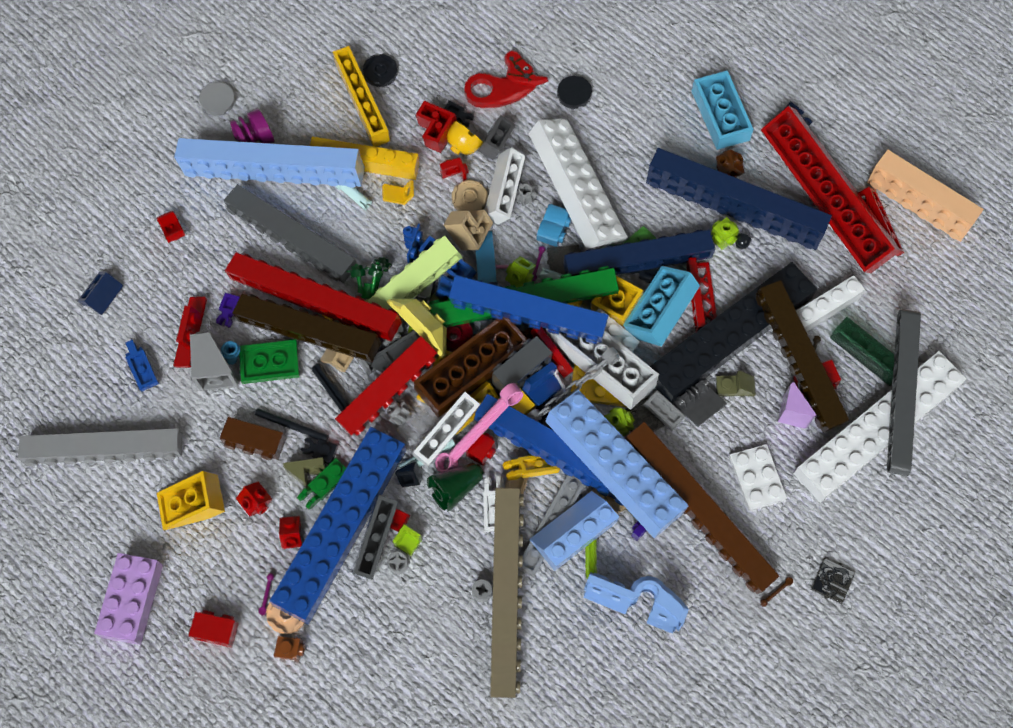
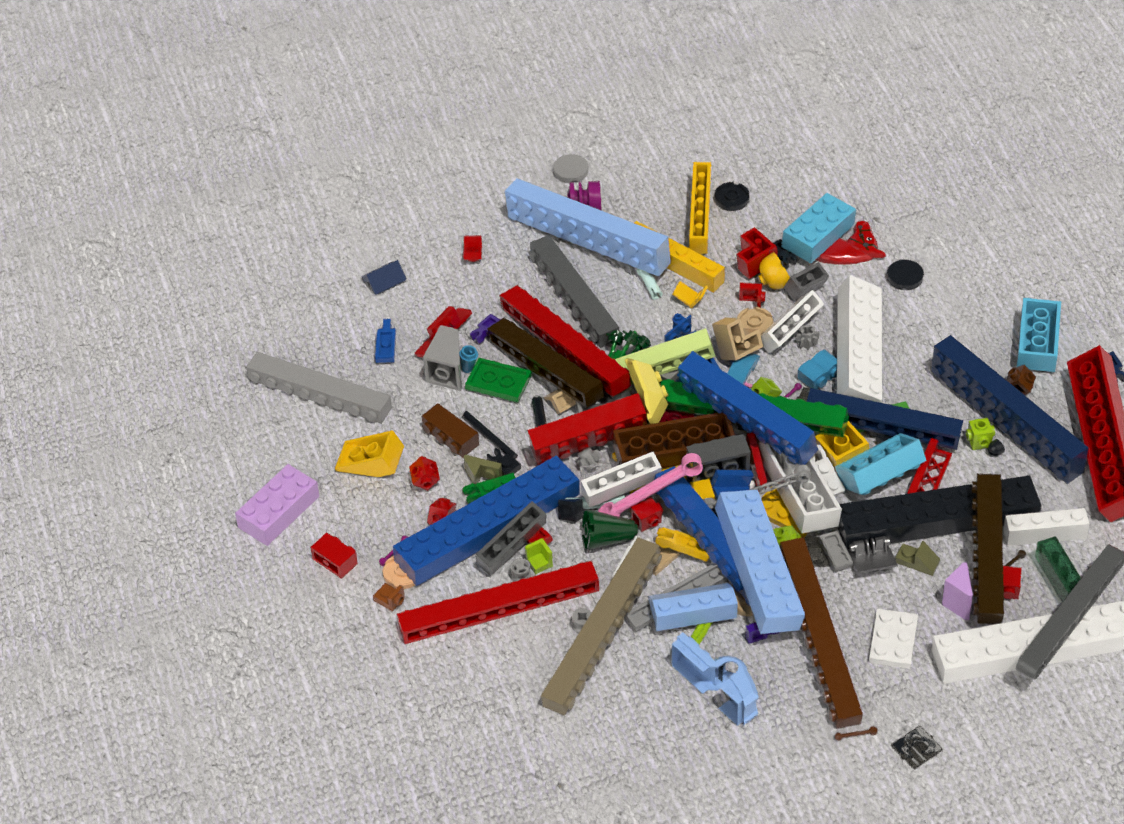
camera: 30 degrees right, 20 degrees down
(393, 609) = (498, 602): none -> red brick
(480, 77) = (818, 227): none -> medium azure brick

